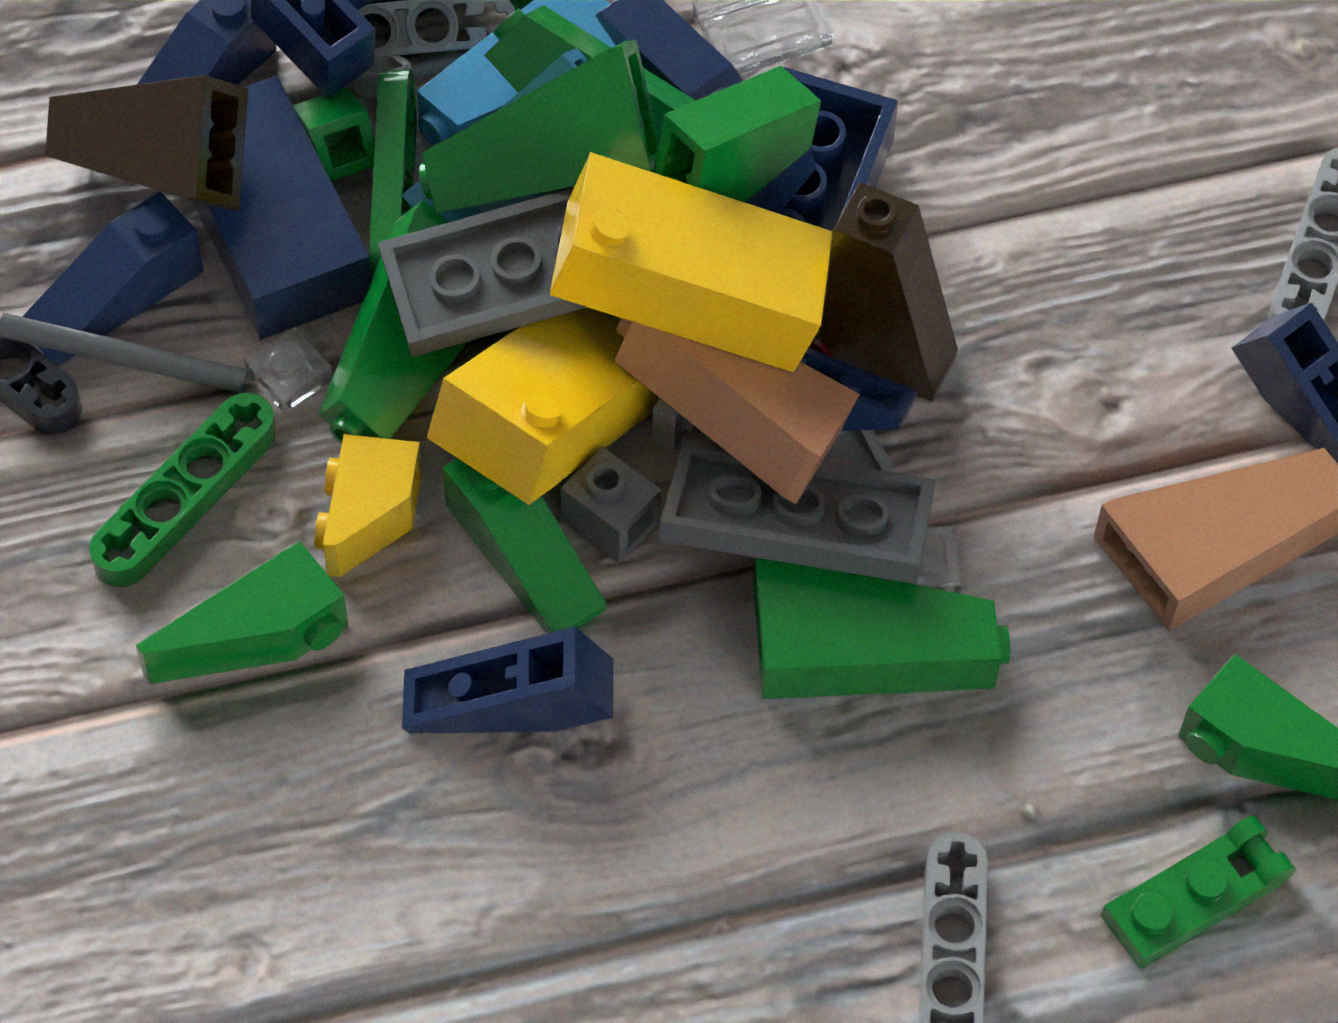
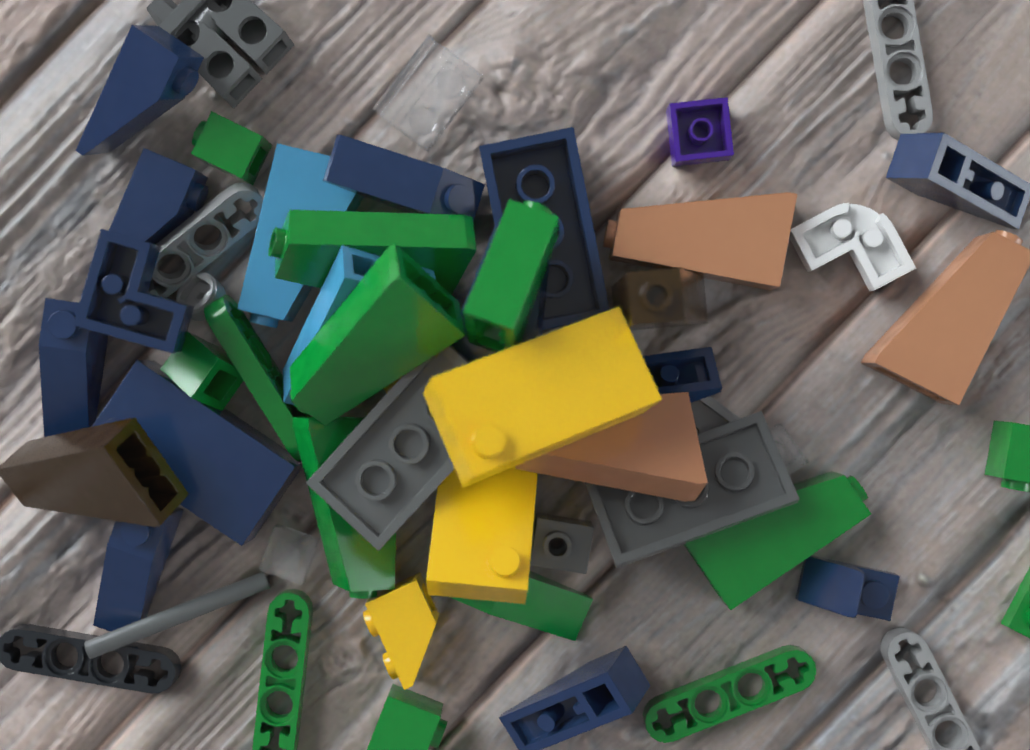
camera: 30 degrees left, 30 degrees up
(700, 804) = (731, 701): none -> green beam
(922, 754) = (847, 588): none -> dark blue slope
(1013, 315) = (717, 239): none -> nougat slope
(1042, 207) = (699, 131): none -> dark purple piece
(1149, 379) = (862, 233): none -> white plate

